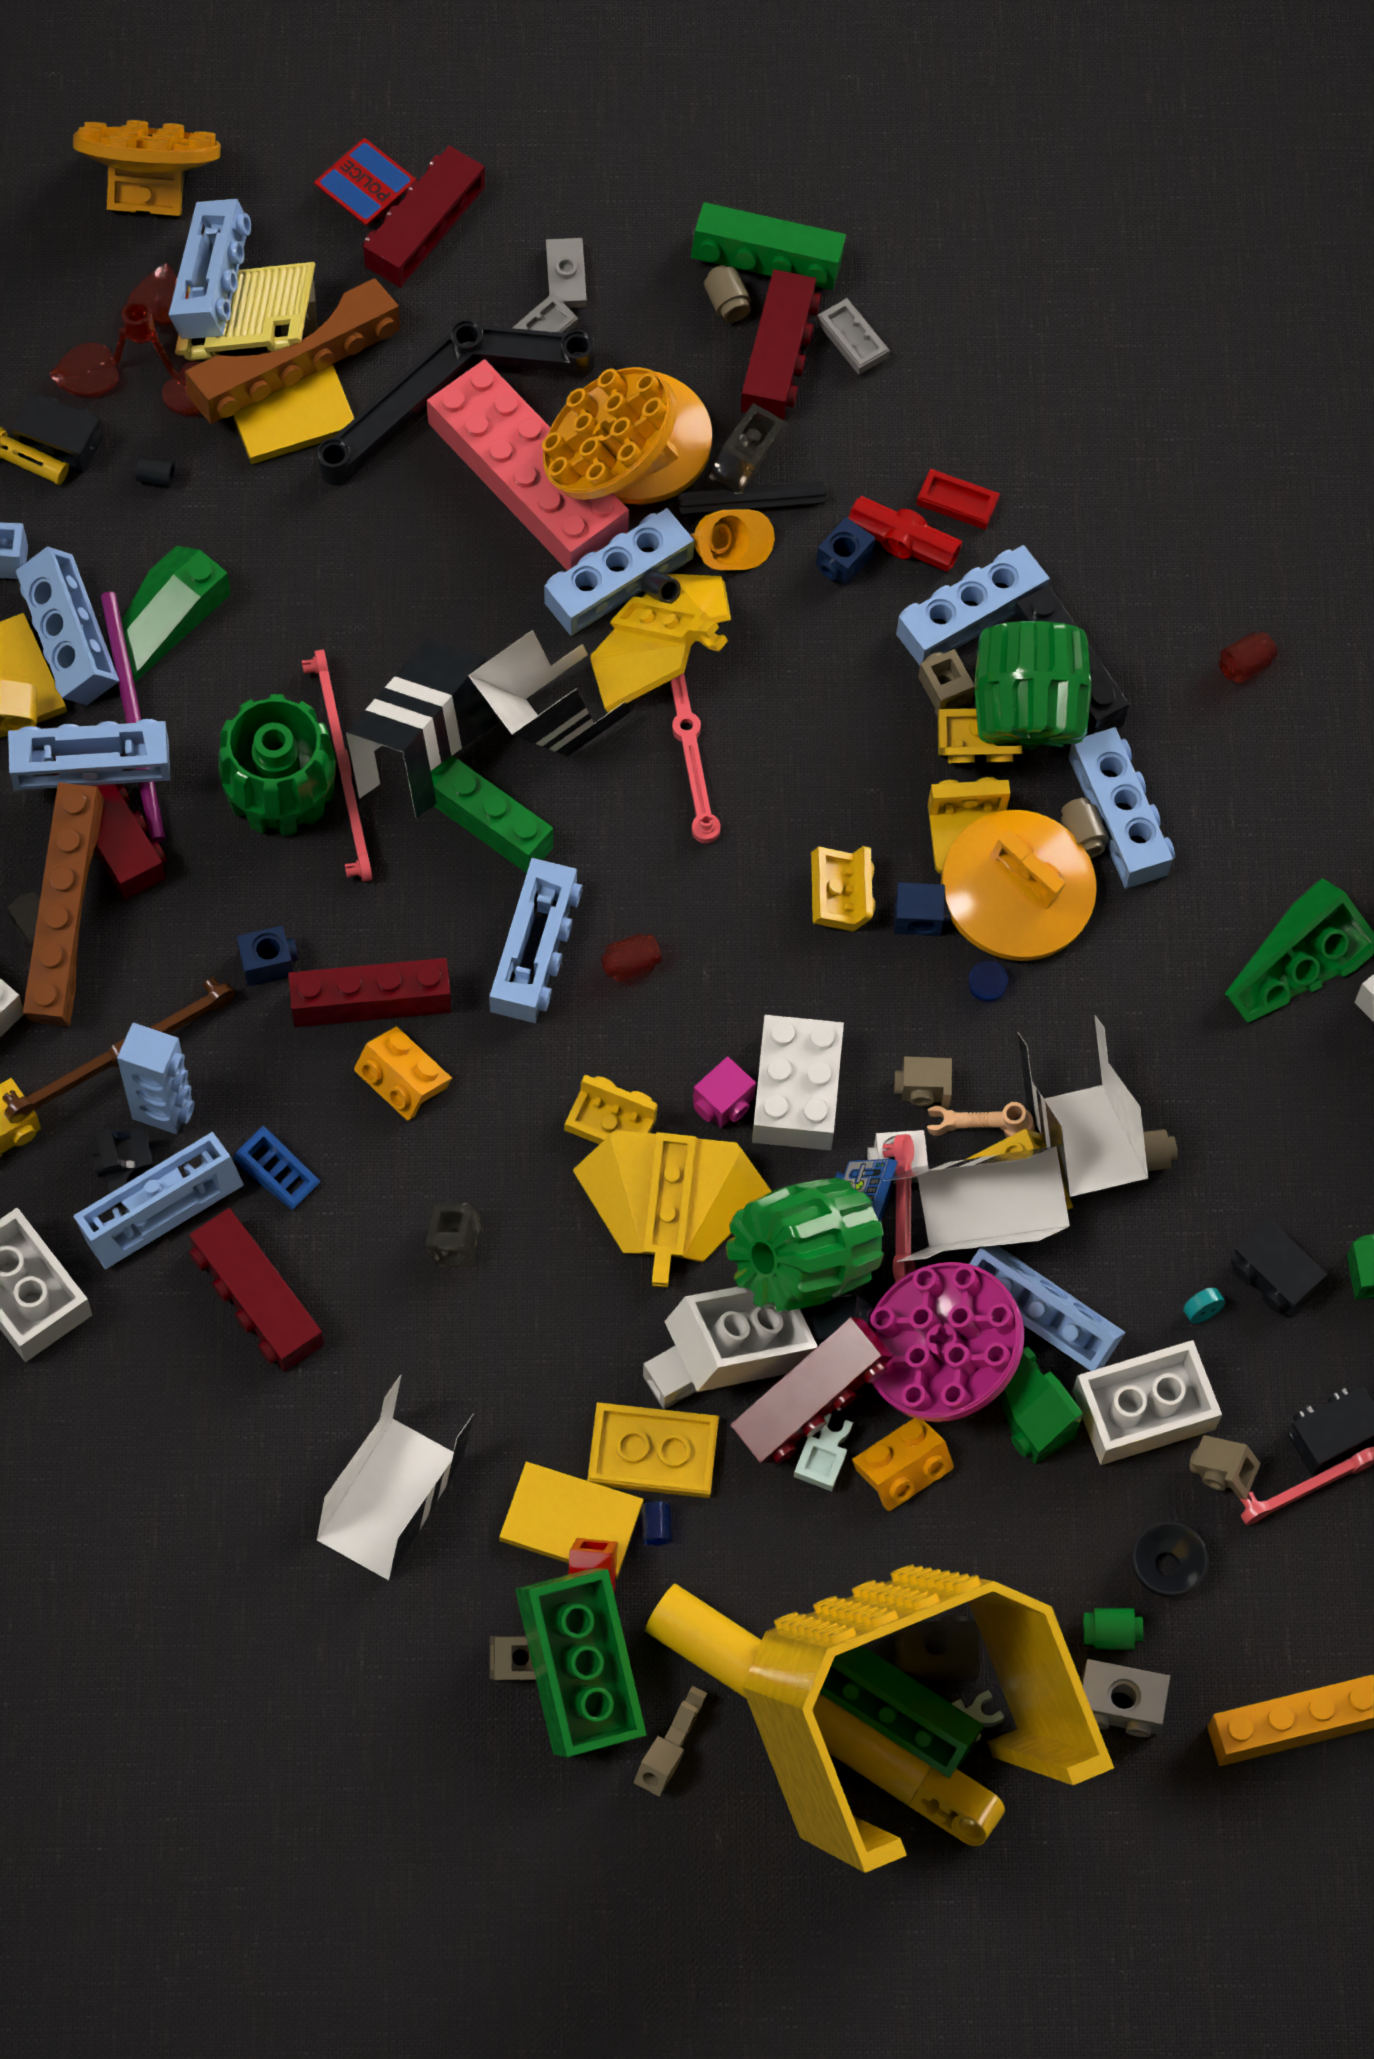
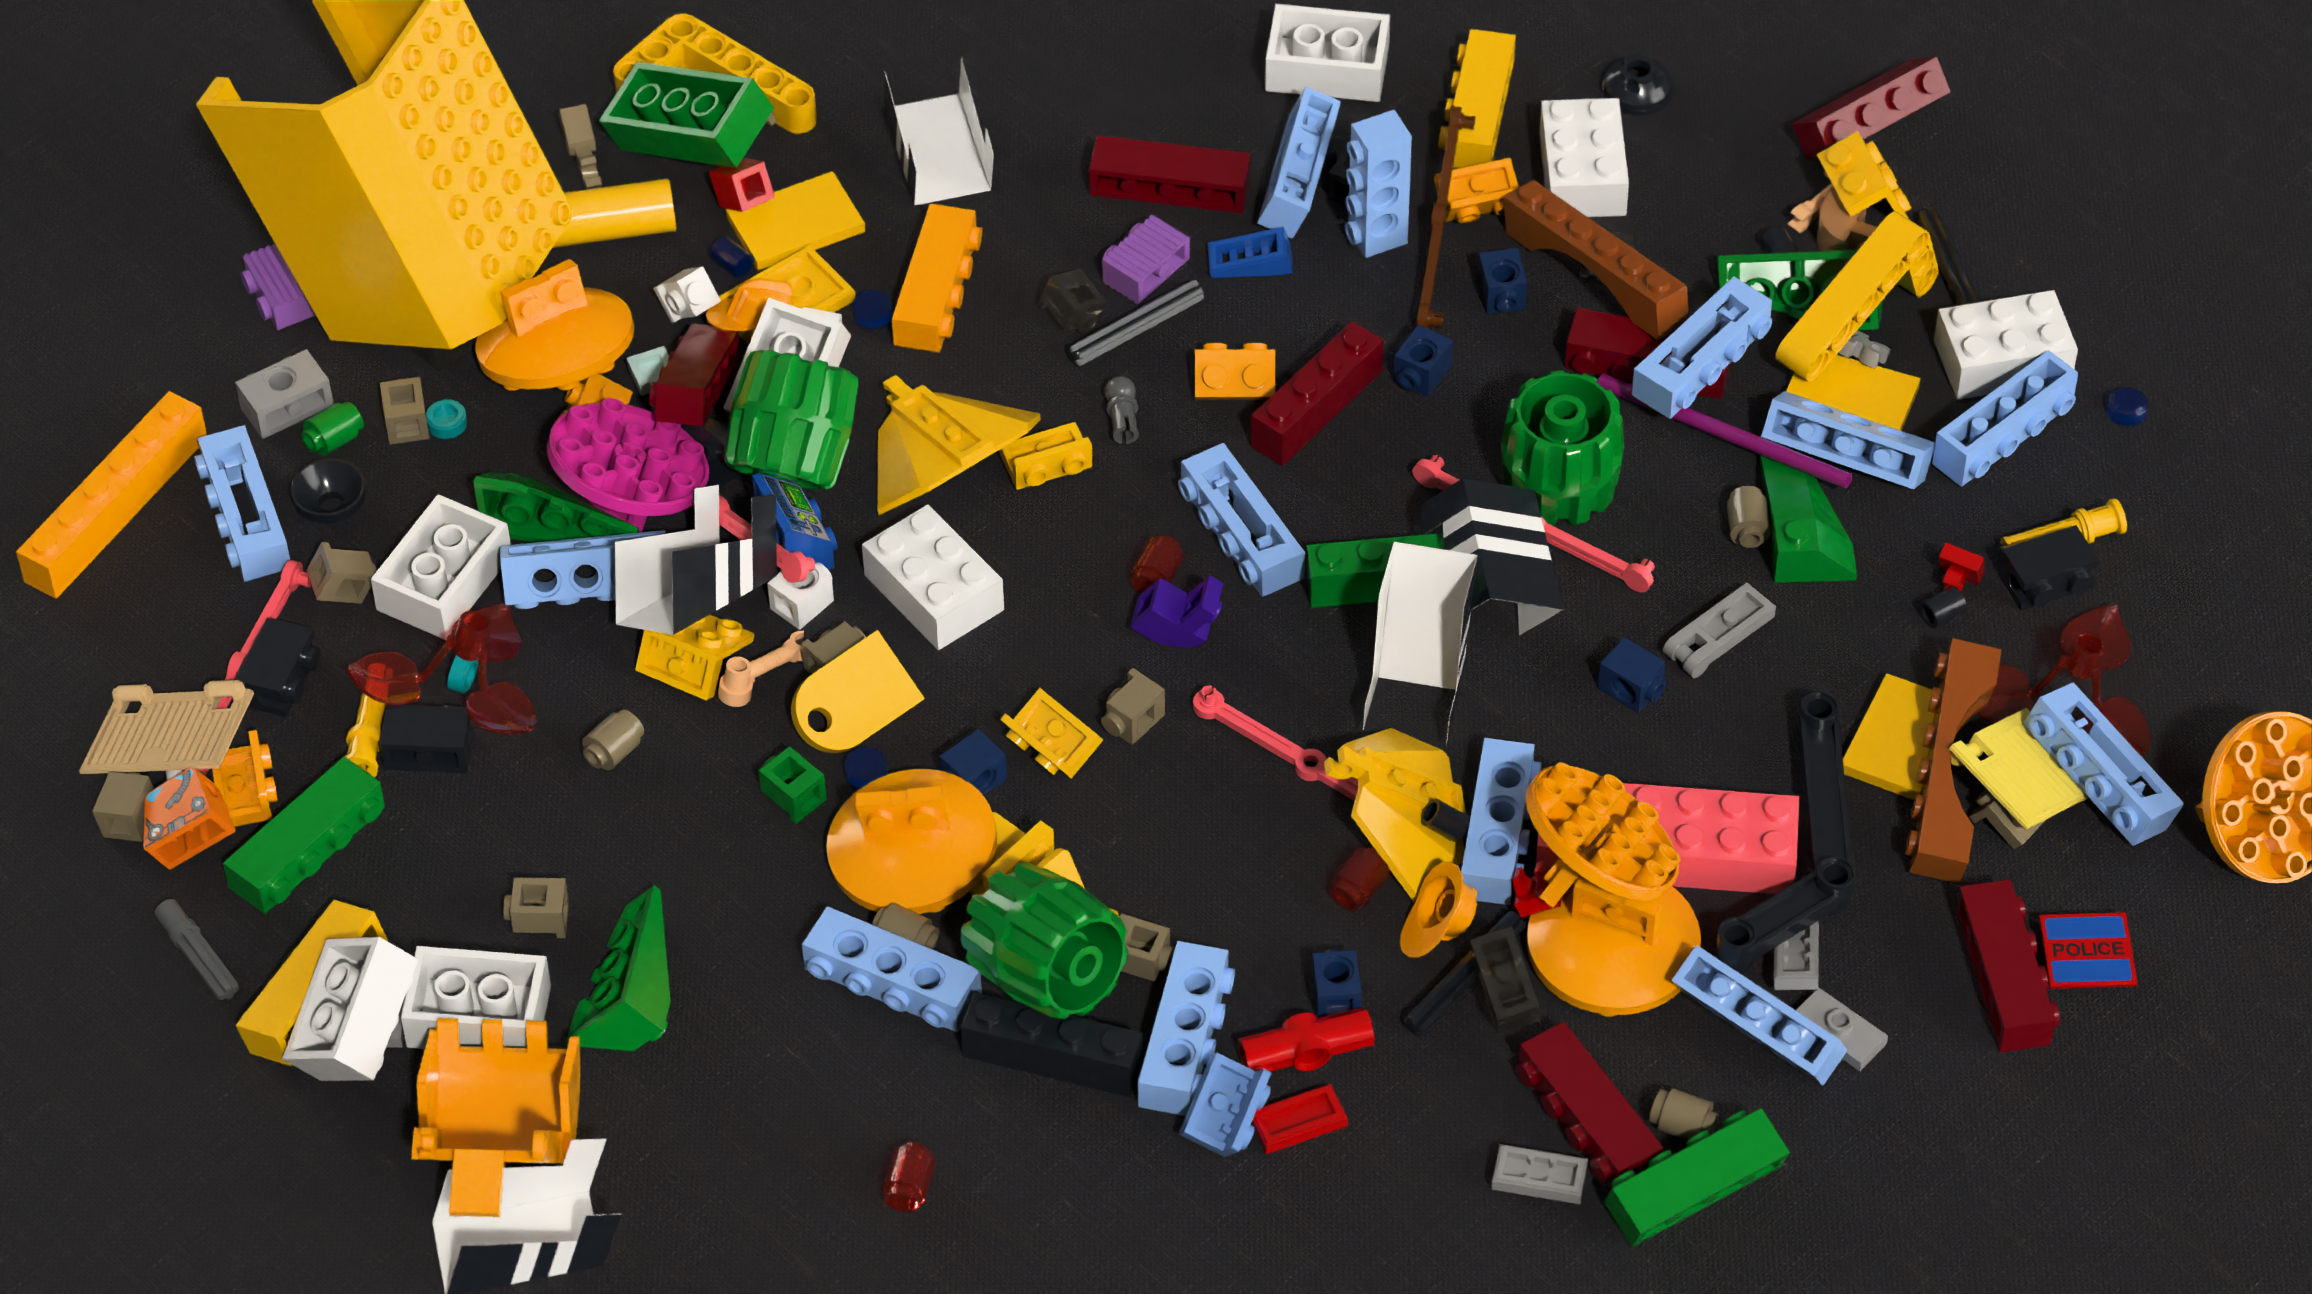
camera: 140 degrees right, 15 degrees down
(51, 1055) = (1479, 190): none -> light orange bracket
(112, 482) = (1960, 567): none -> red tile
(133, 986) = (1502, 281): none -> dark blue brick
(198, 638) = (1748, 517): none -> dark tan brick
(315, 580) = (1719, 629): none -> light grey plate
(358, 1228) = (1145, 258): none -> medium lavender brick
(413, 594) = (1632, 675): none -> dark blue brick
(421, 1184) = (1135, 322): none -> axle
(482, 1727) = (697, 46): none -> yellow beam
(501, 1128) = (1122, 408): none -> dark grey pin
(528, 1353) = (936, 278): none -> light orange brick
(599, 1375) = (872, 309): none -> clear blue piece
(615, 300) = (1759, 1015): none -> light blue brick
(655, 493) = (1529, 891): none -> red tile
(658, 899) = (1177, 617): none -> dark purple brick
(703, 1434) = (747, 305): none -> light orange piece
(724, 1093) = (979, 523): dark pink brick -> none
(734, 1500) = (687, 294): none -> white brick
(752, 611) = (1359, 879): none -> clear red brick
(765, 859) = (1134, 707): none -> dark tan brick
(870, 1524) = (555, 332): none -> light orange bracket
(951, 1030) = (855, 694): none -> yellow tile
(1004, 521) = (1225, 1105): none -> medium blue bracket
(1011, 1567) = (446, 419): none -> teal tile
(1034, 1817) = (275, 287): none -> medium lavender brick
(1050, 1582) = (404, 410): none -> dark tan brick
(1055, 992) = (793, 784): none -> green brick
(1093, 1128) = (679, 691): white sticker -> none
(1207, 1233) = (476, 635): none -> clear red plant
(1216, 1674) = (221, 461): none -> light blue brick
(1320, 1313) = (366, 735): none -> yellow pin
(1322, 1048) = (538, 906): none -> dark tan brick

